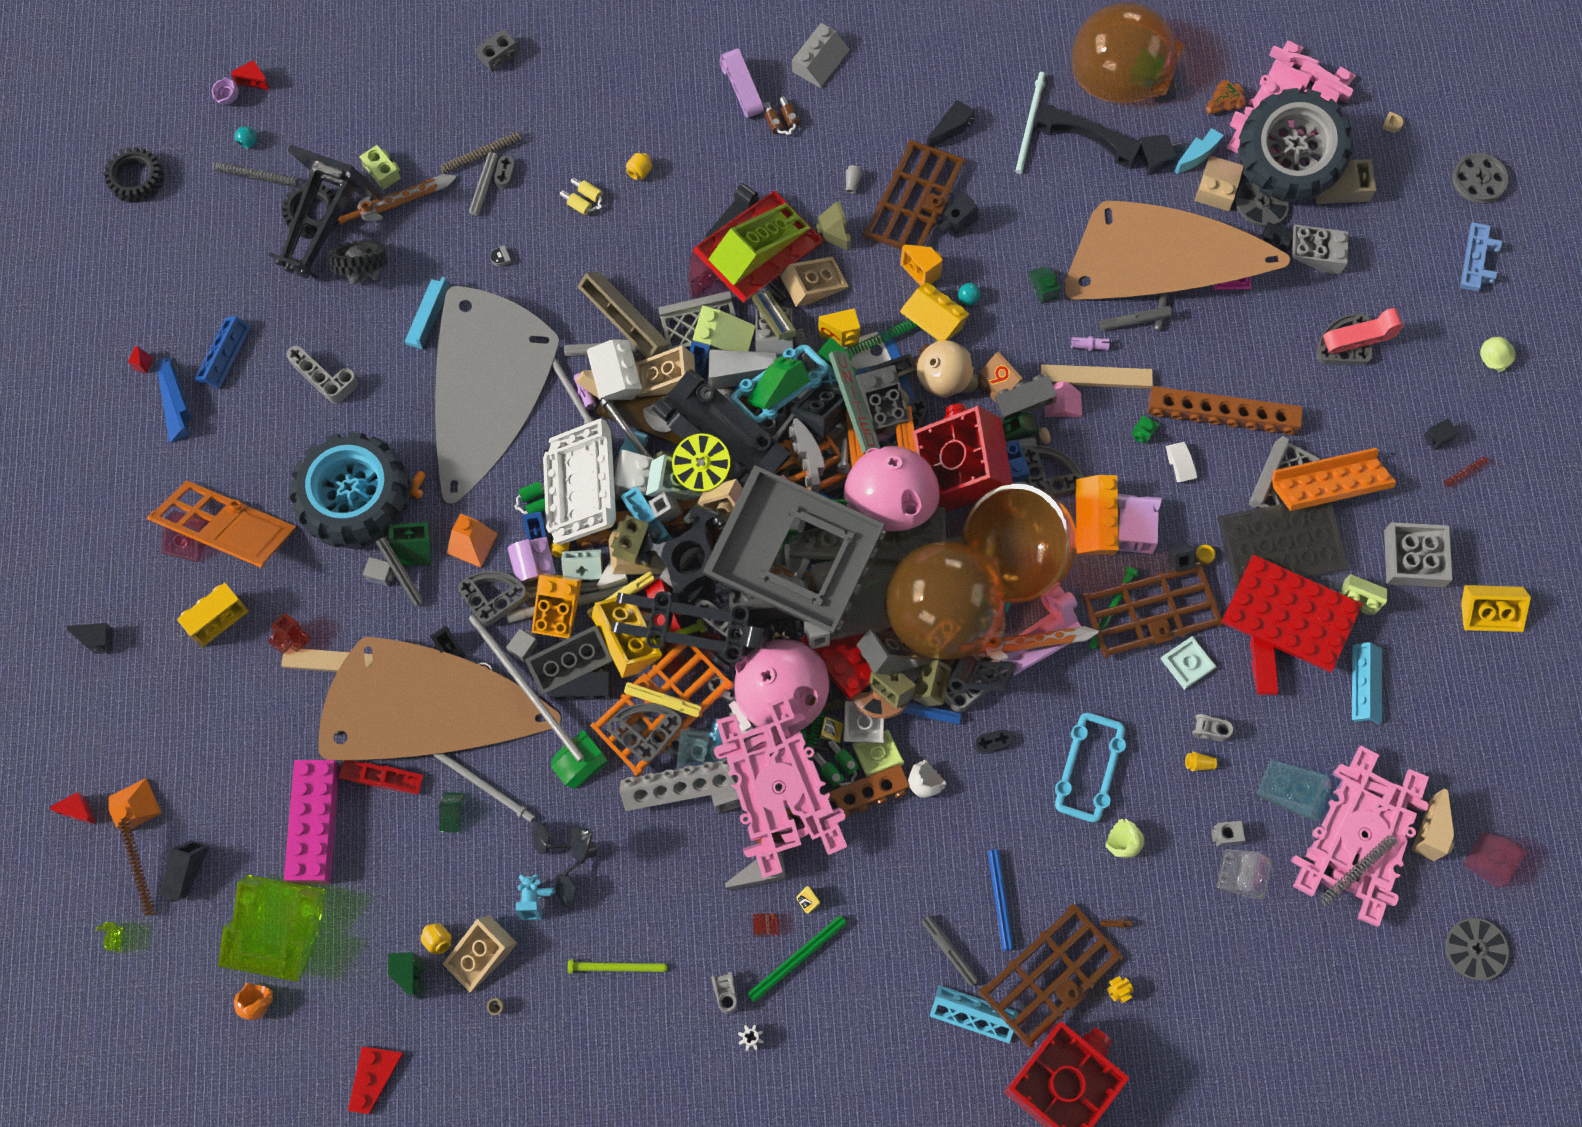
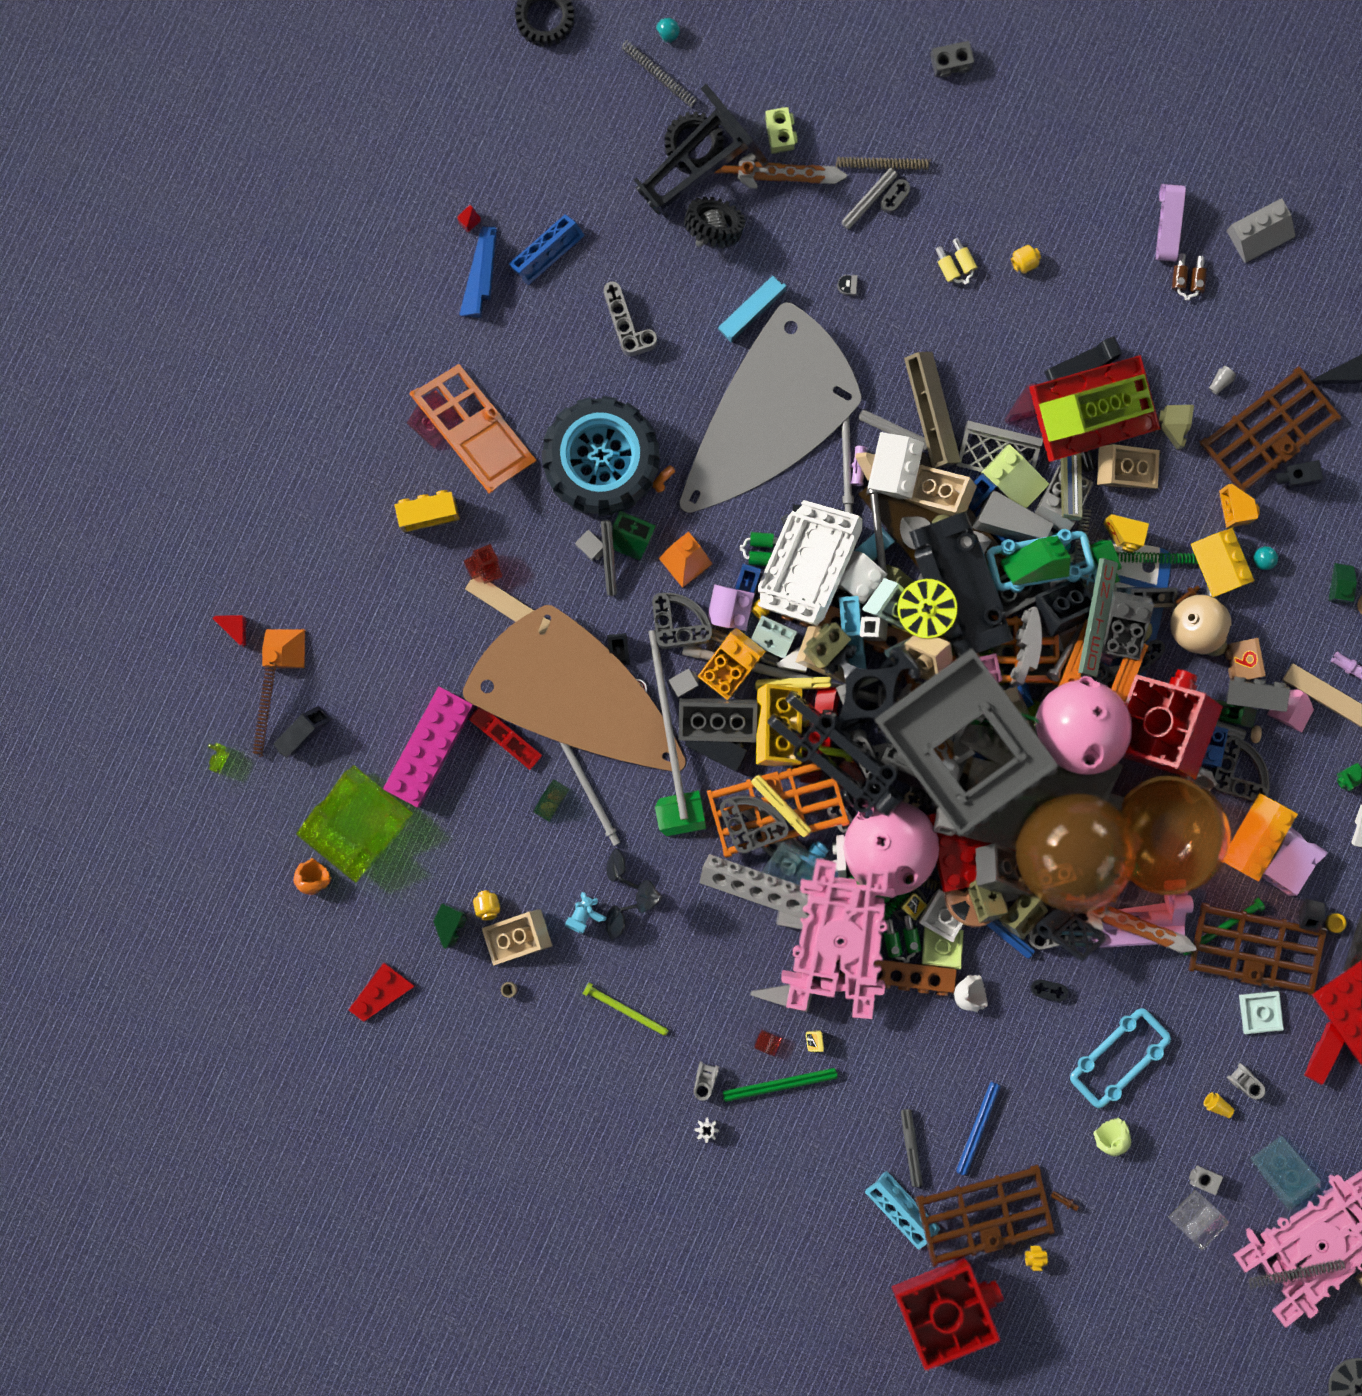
camera: 25 degrees right, 15 degrees up
(94, 636) = (313, 474): black slope -> none

